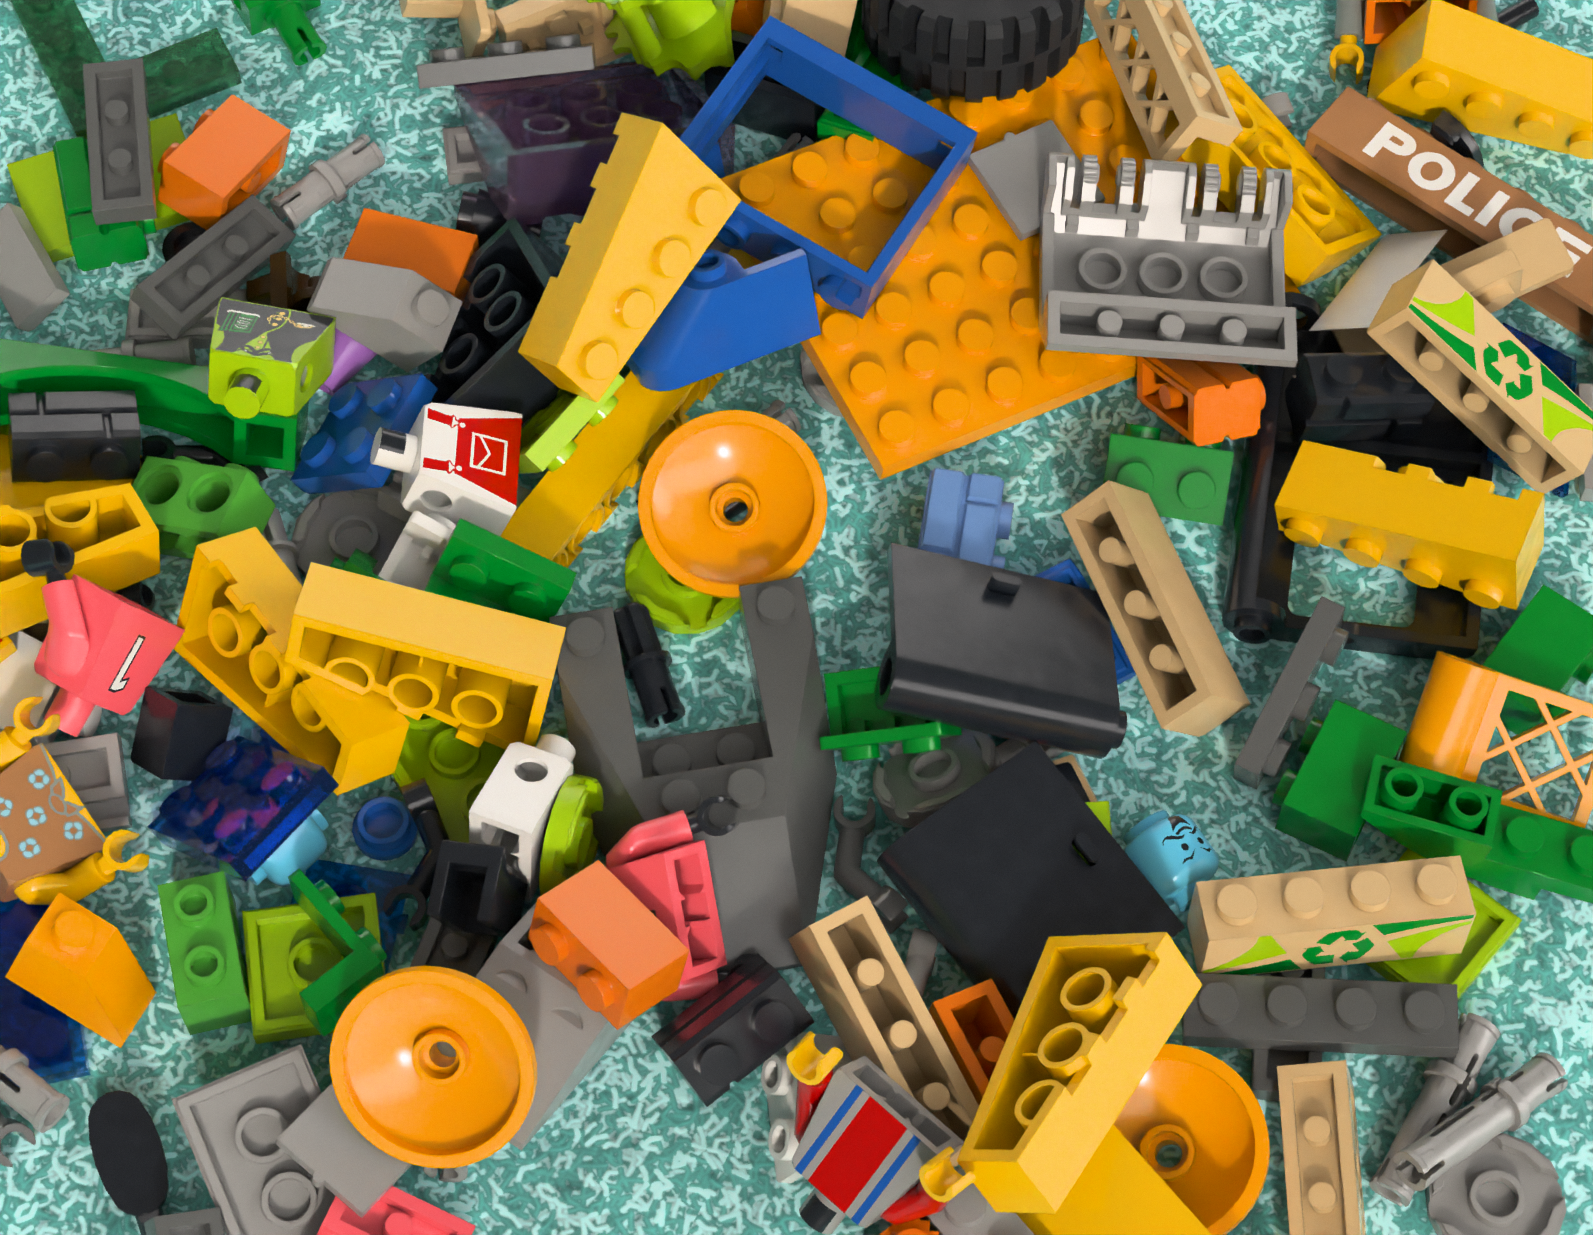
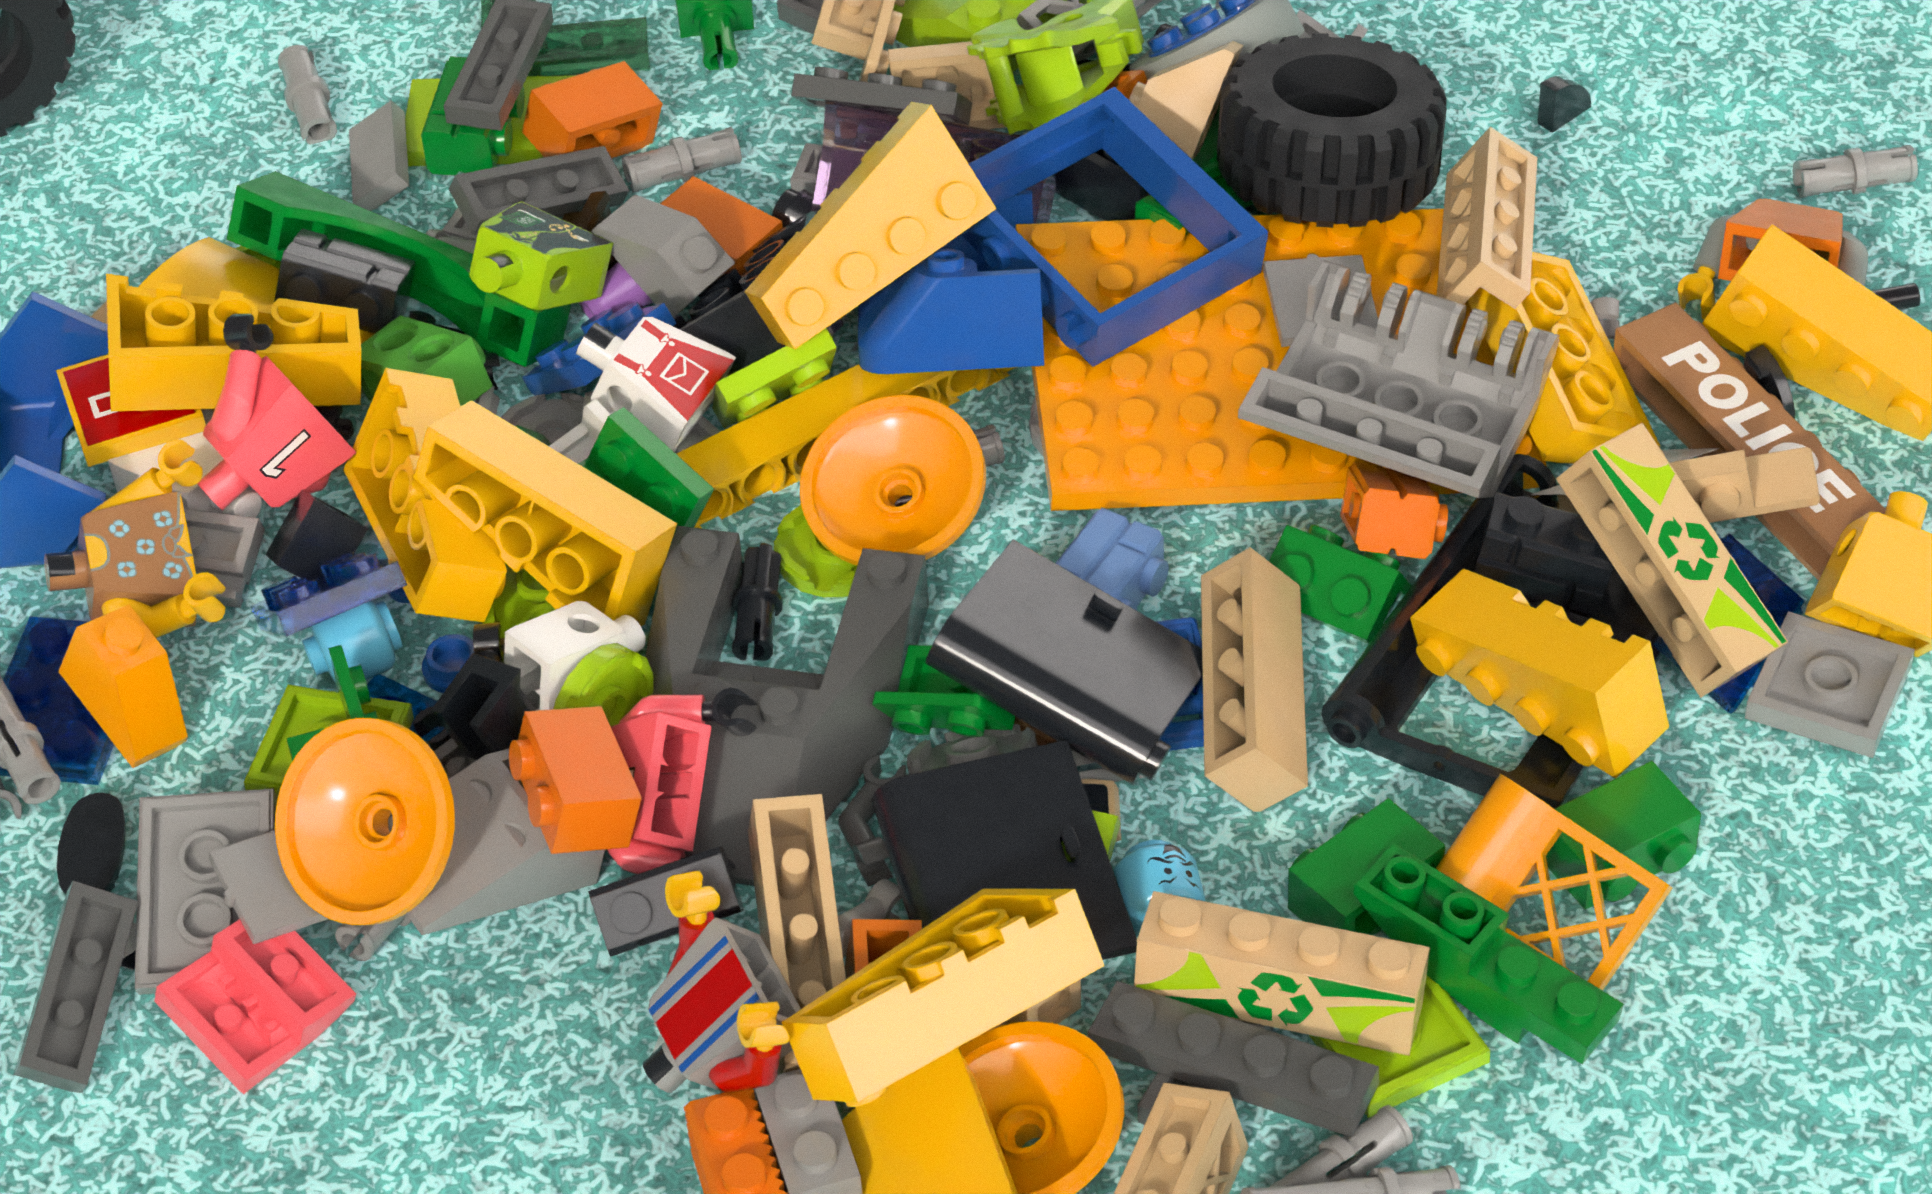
camera: 25 degrees right, 15 degrees down
(205, 952) = (237, 705): bright green brick -> none
(1292, 695) = (1349, 783): dark grey plate -> none

